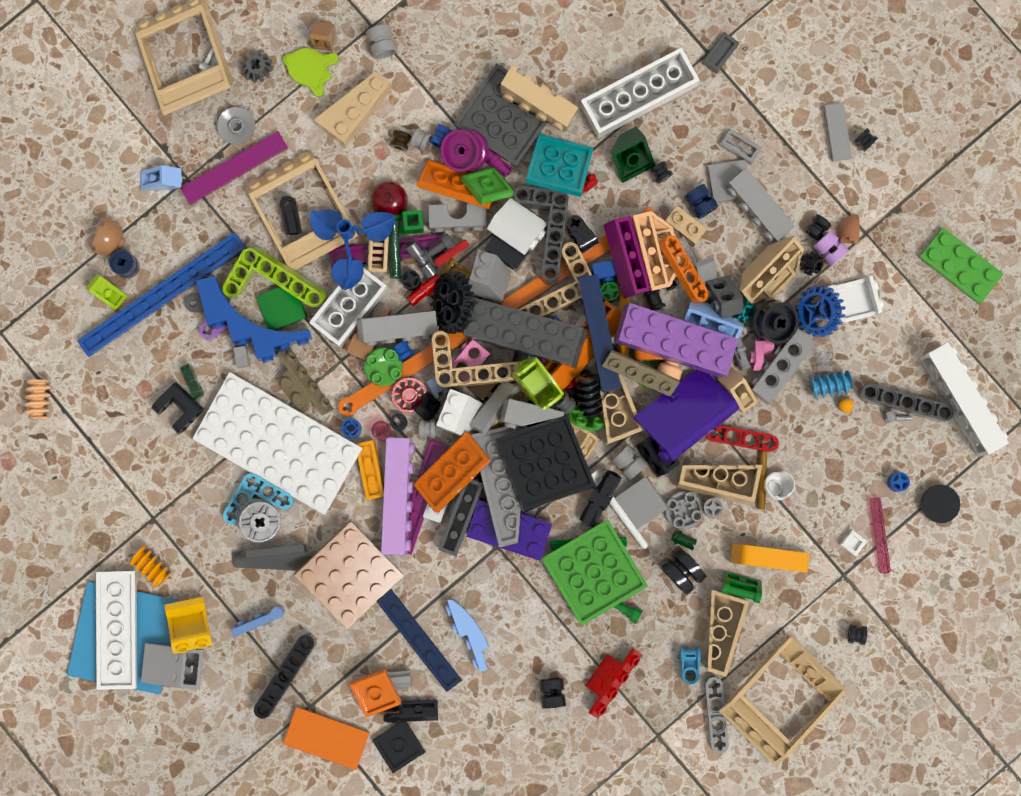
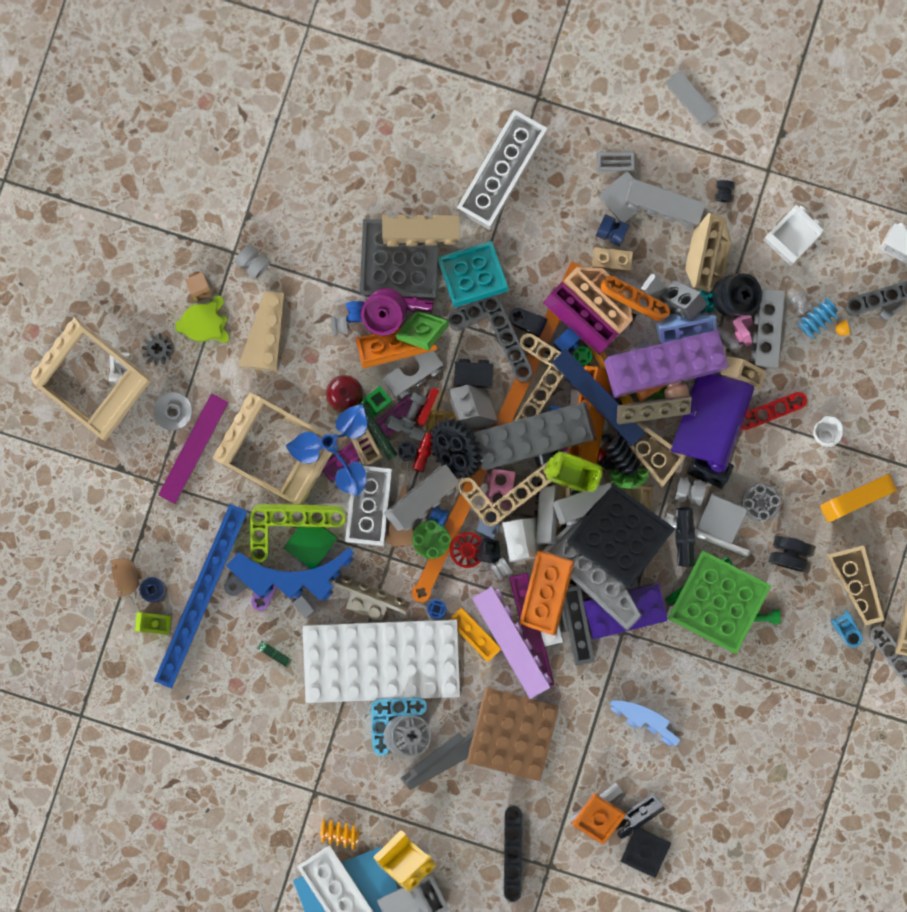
camera: 30 degrees left, 0 degrees up
(37, 399) = (151, 752): light nougat piece -> none
(161, 178) = (136, 497): light blue slope -> none
(184, 401) = (280, 676): black connector -> none
(258, 620) = (460, 820): medium blue plate -> none
(290, 217) = (270, 461): black piece -> none
(326, 738) = (580, 884): orange tile -> none
(384, 432) = (463, 598): clear pink wheel -> none
(399, 416) = (469, 573): black bush -> none
(400, 140) = (322, 336): dark brown wheel -> none
(419, 640) = (606, 752): dark blue tile -> none
(518, 226) = (471, 349): white brick -> none
(552, 700) = (753, 729): black wheel -> none
(565, 403) = (608, 474): dark grey wheel -> none
(591, 182) = (508, 272): red arm -> none
(609, 678) = (787, 684): red bracket -> none
(631, 154) = (528, 226): dark green slope -> none
(654, 300) = (625, 340): black bush -> none
(661, 172) = (562, 226): black wheel -> none
(684, 540) = (776, 528): dark green pin -> none
(716, 507) = (786, 483): light grey wheel -> none
(720, 52) = (548, 91): dark grey tile -> none
(722, 481) = (780, 457): tan wedge -> none
(741, 586) = (850, 536): green plate -> none
(761, 492) = (809, 432): pearl gold bar -> none
(811, 263) = (738, 225): black gear -> none
(826, 243) = (740, 201): lavender wheel -> none
(828, 300) = (765, 270): blue gear -> none
(849, 229) = (752, 177): nougat brick -> none
(866, 139) = (719, 90): black wheel -> none
(961, 265) = (865, 148): bright green plate -> none

